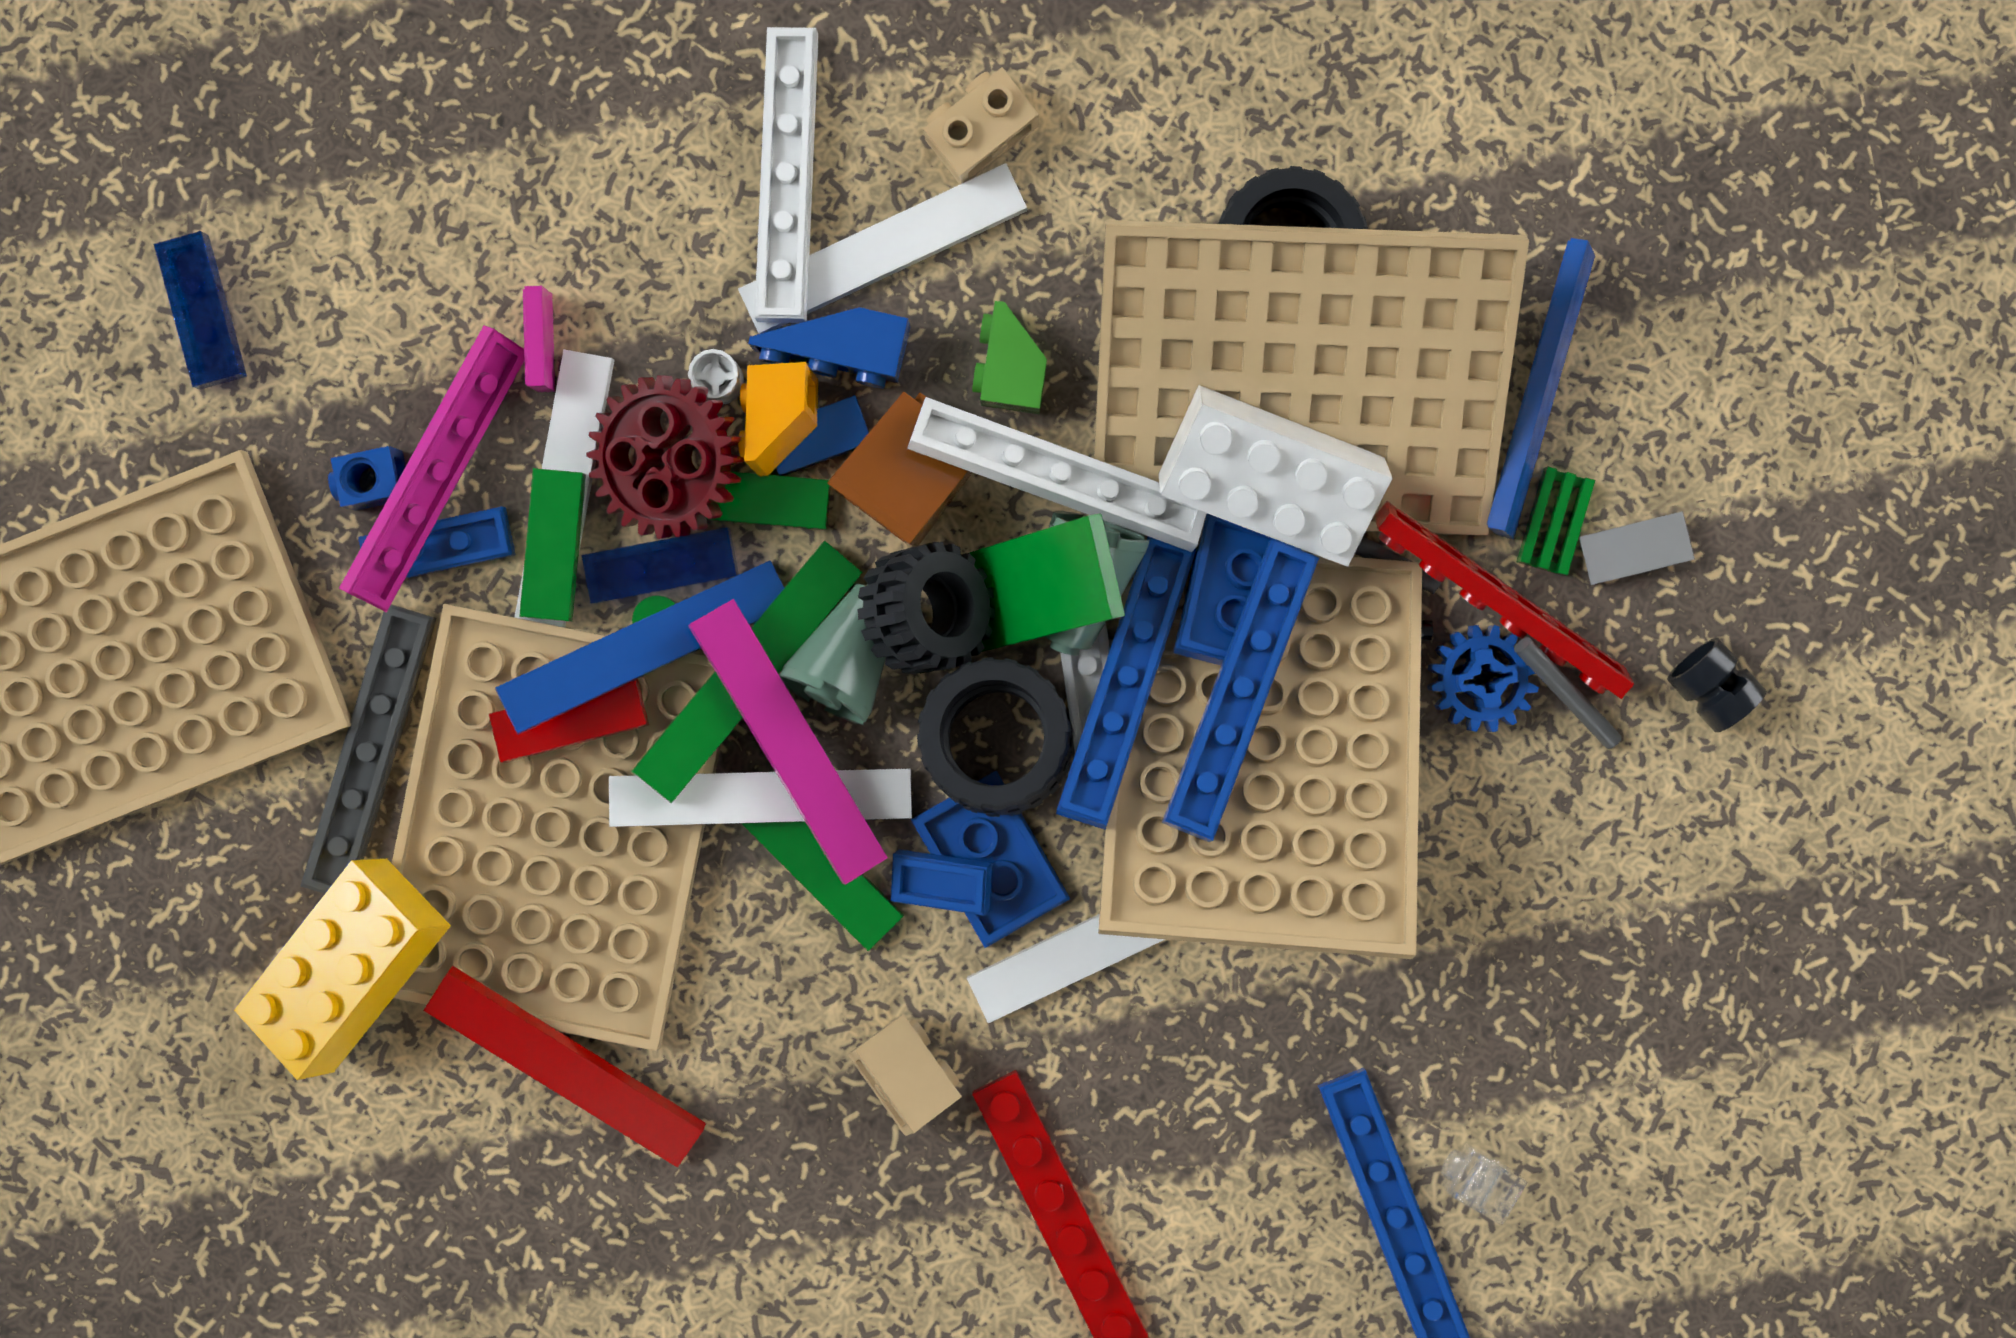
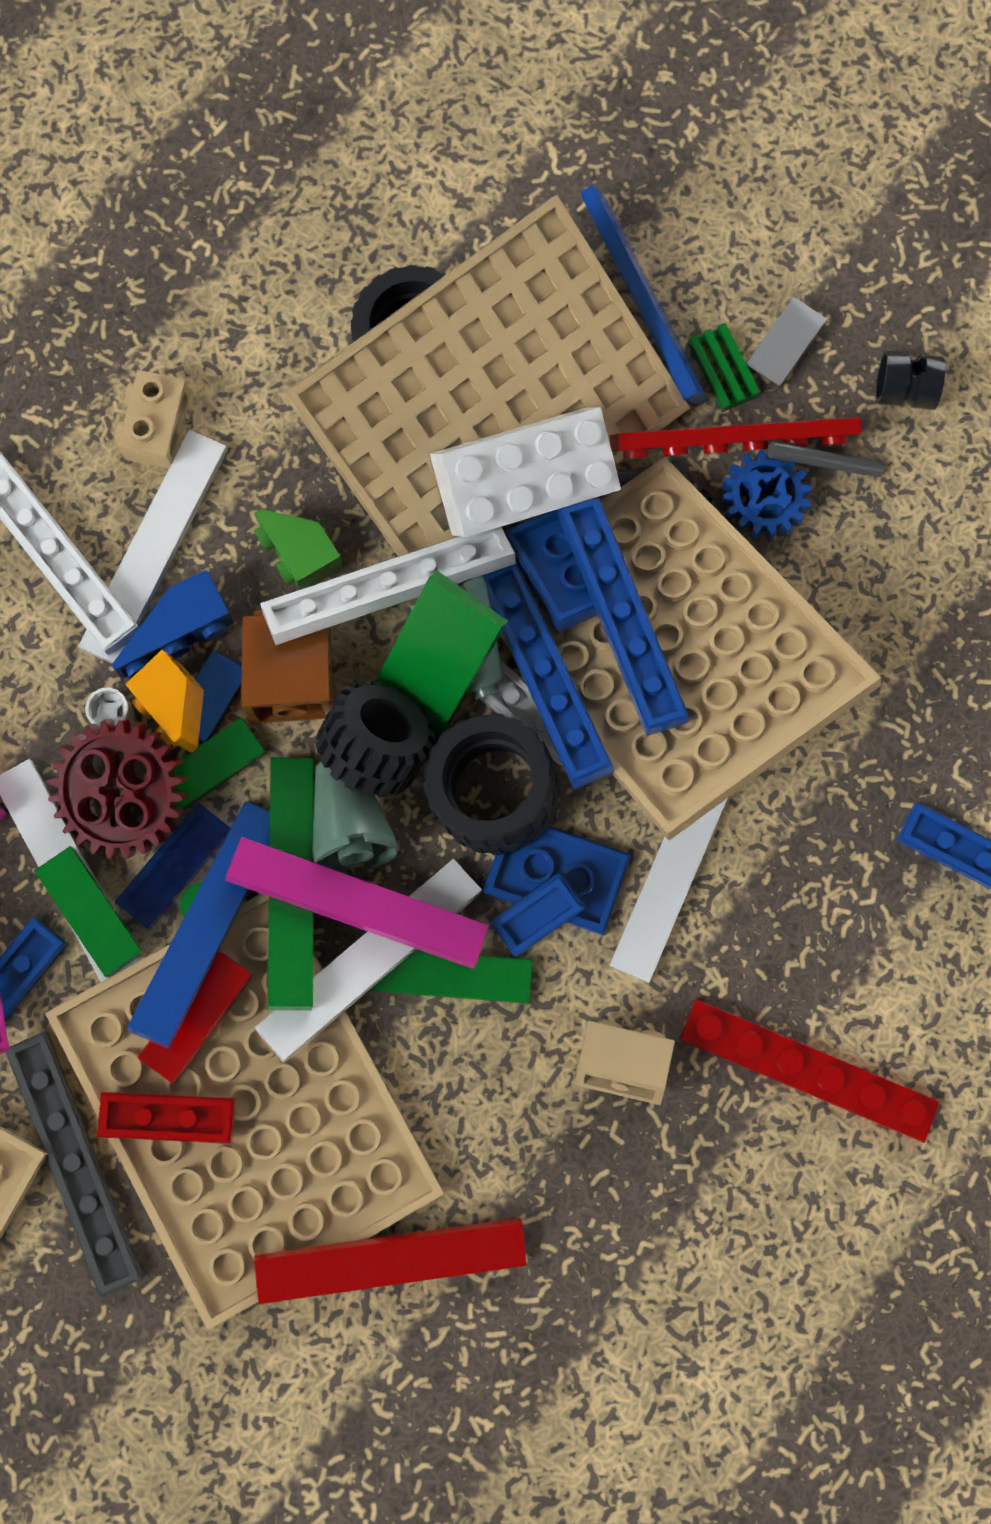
camera: 45 degrees left, 10 degrees down
(341, 968) = (176, 1324): yellow brick -> none
(474, 785) = (166, 1117): none -> red tile

